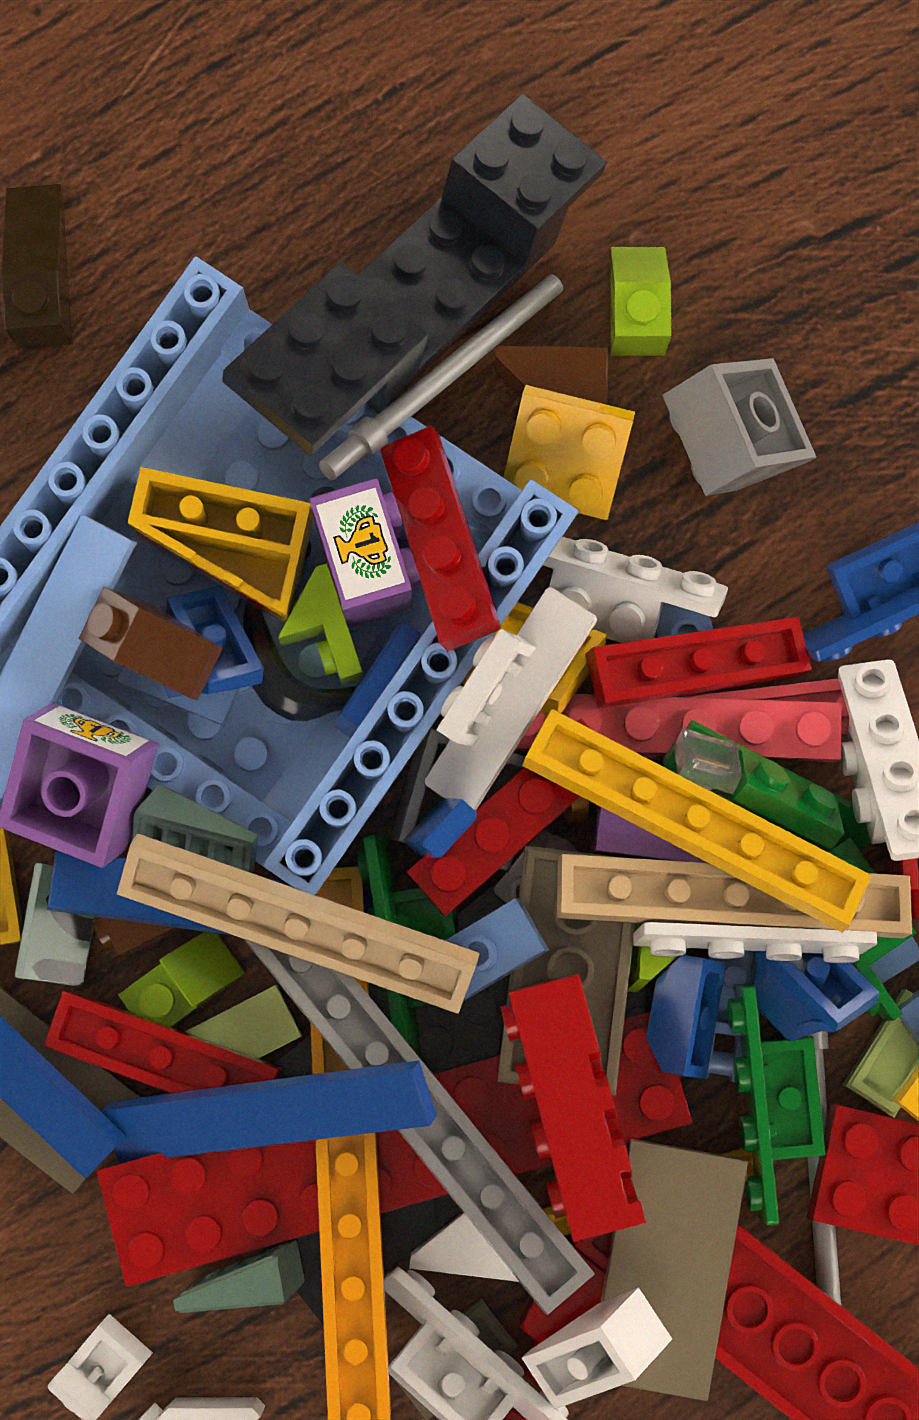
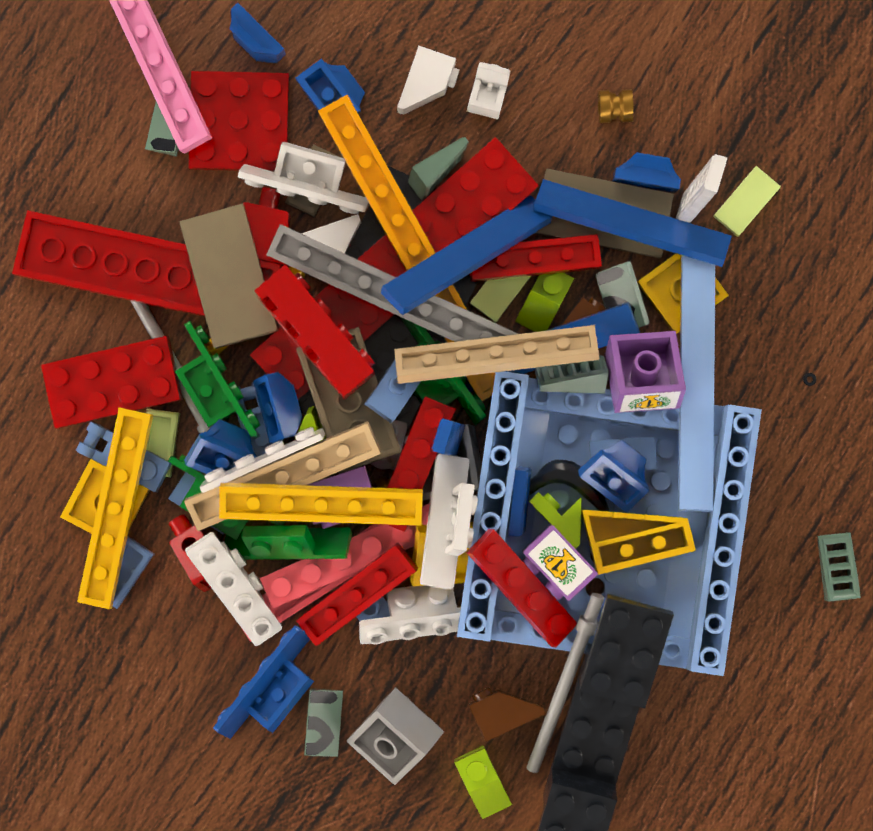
camera: 150 degrees right, 5 degrees up
(36, 267) = (816, 642): dark brown slope -> none
(150, 642) = (643, 461): reddish brown slope -> none
(569, 448) = (480, 675): yellow plate -> none
(598, 1349) = (246, 219): white slope -> none
(707, 761) = (328, 539): clear plate -> none
(839, 499) = (323, 722): none -> slope

